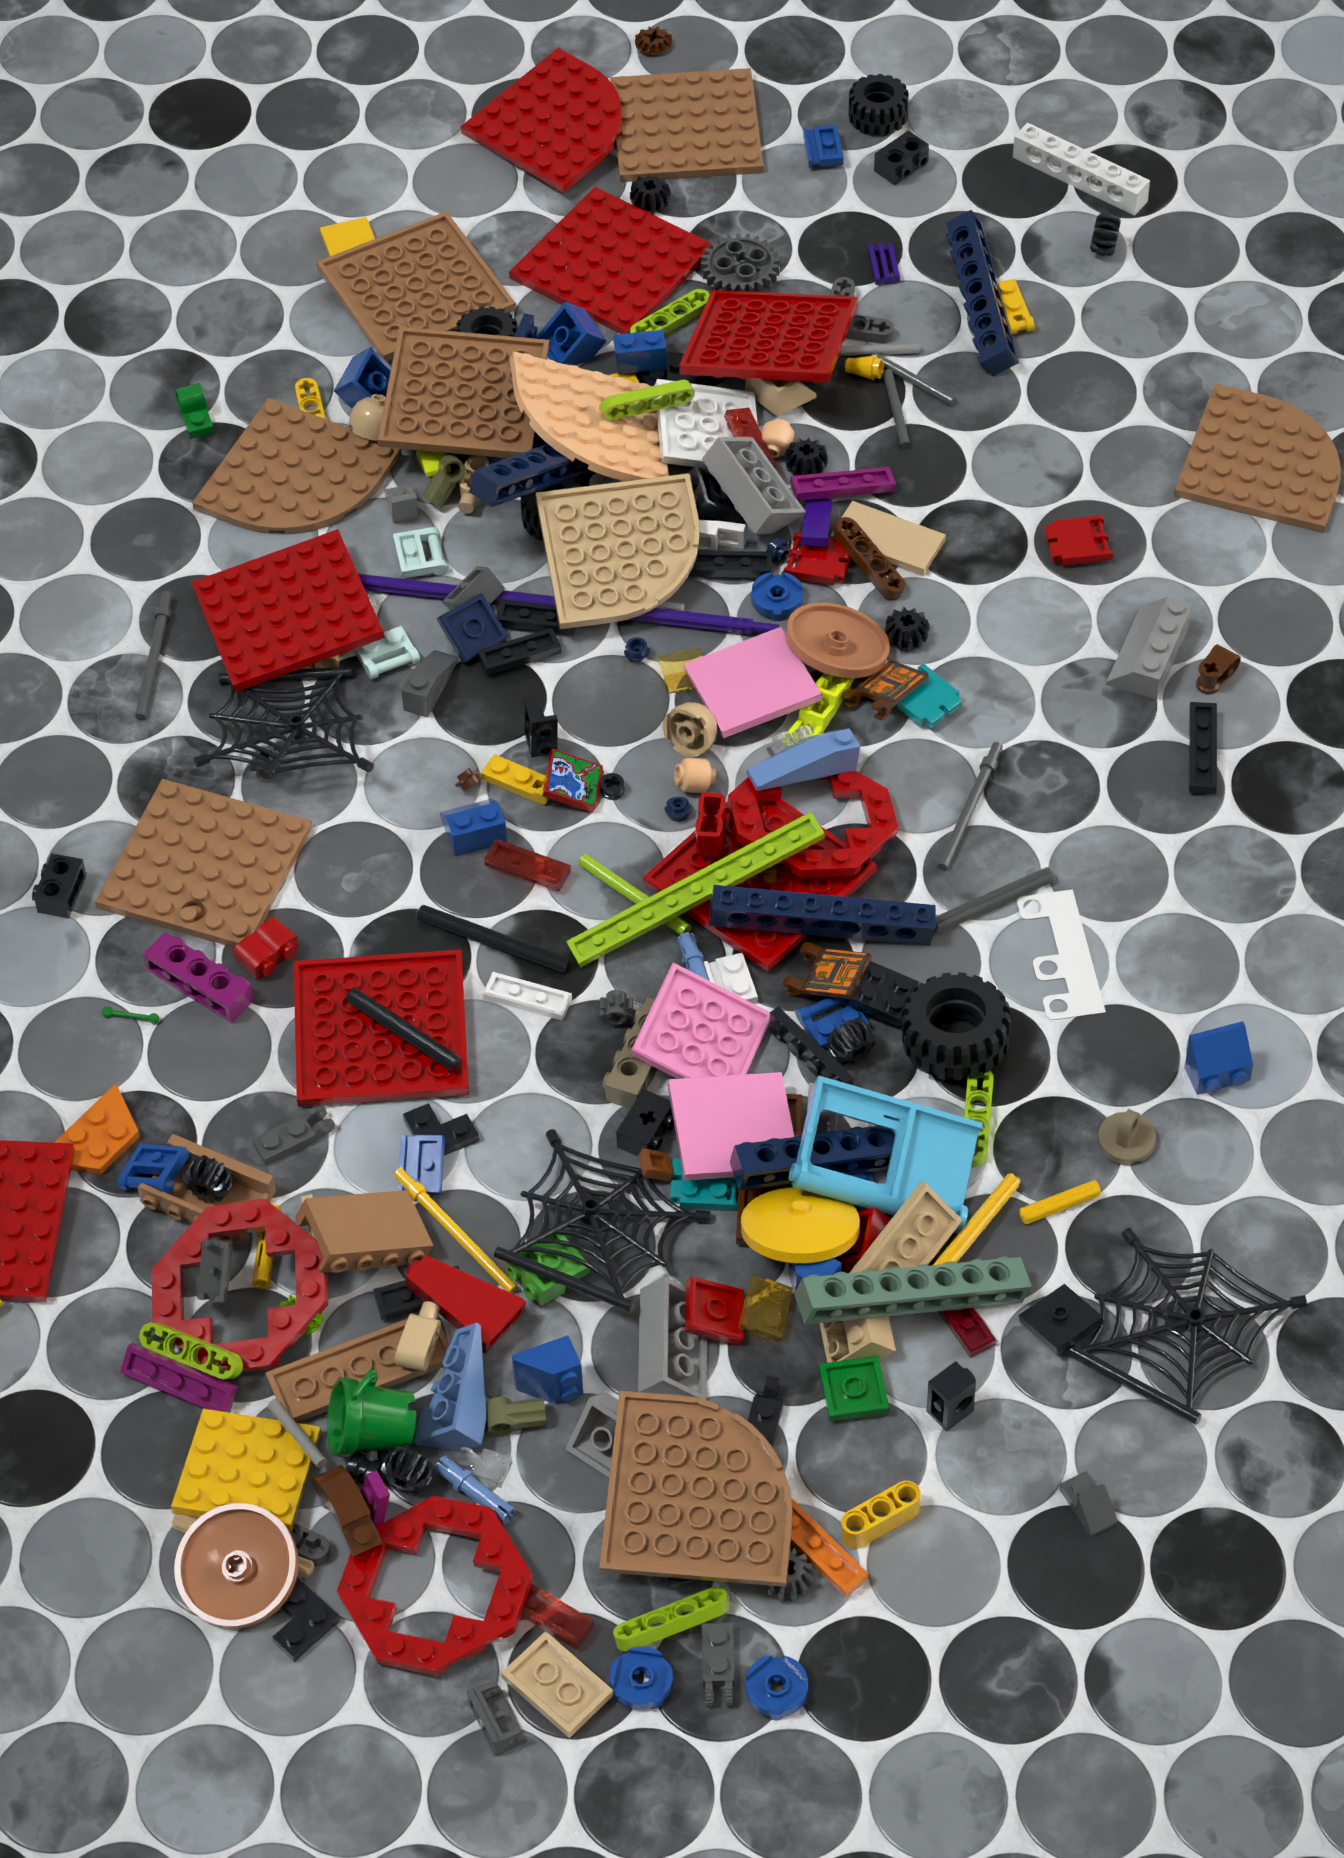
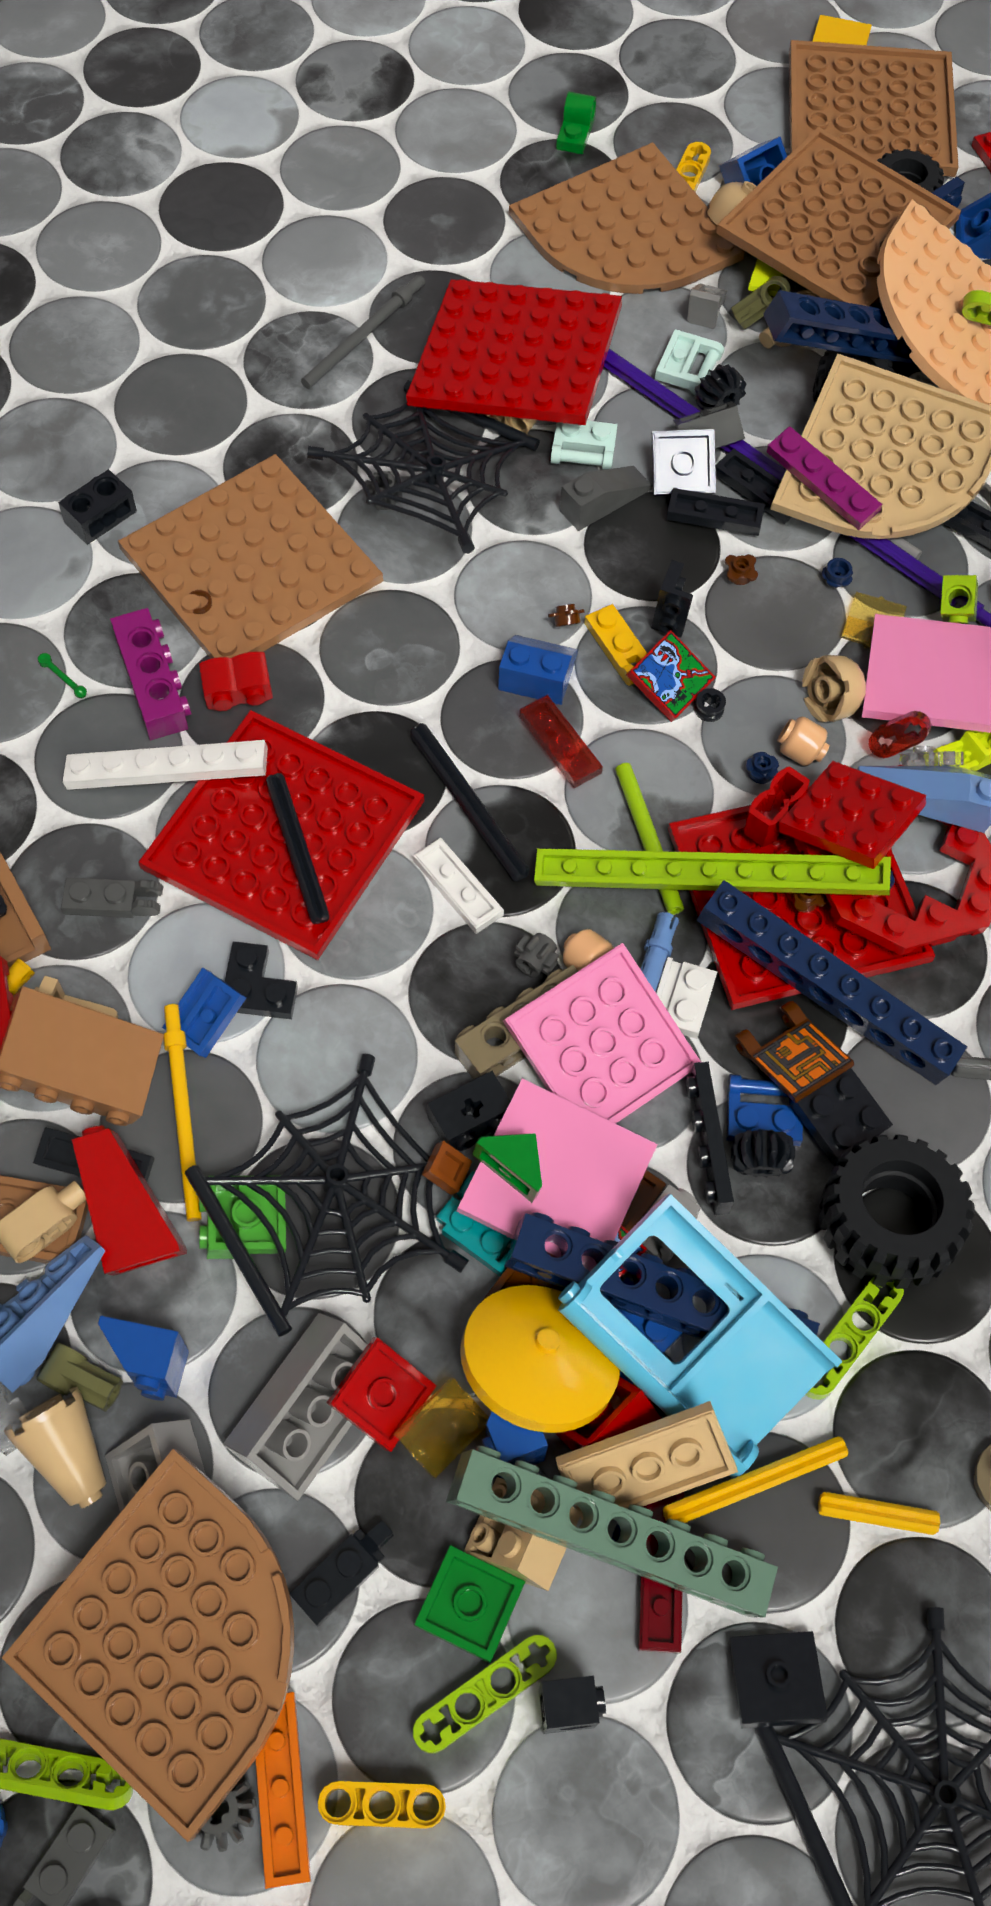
camera: 30 degrees right, 10 degrees up
(262, 1029) = (165, 764): none -> white plate
(461, 561) = (720, 387): none -> black gear
(539, 1450) = (62, 1448): none -> tan cone
(566, 682) = (741, 569): none -> reddish brown plate
(586, 587) = (824, 478): none -> magenta plate
(646, 985) = (584, 948): none -> light nougat head
(702, 1125) = (514, 1160): none -> green slope
(735, 612) = (959, 586): none -> lime brick
(762, 739) = (897, 727): none -> clear red beam
(766, 799) = (852, 814): none -> red plate
(898, 1429) = (489, 1699): none -> lime beam

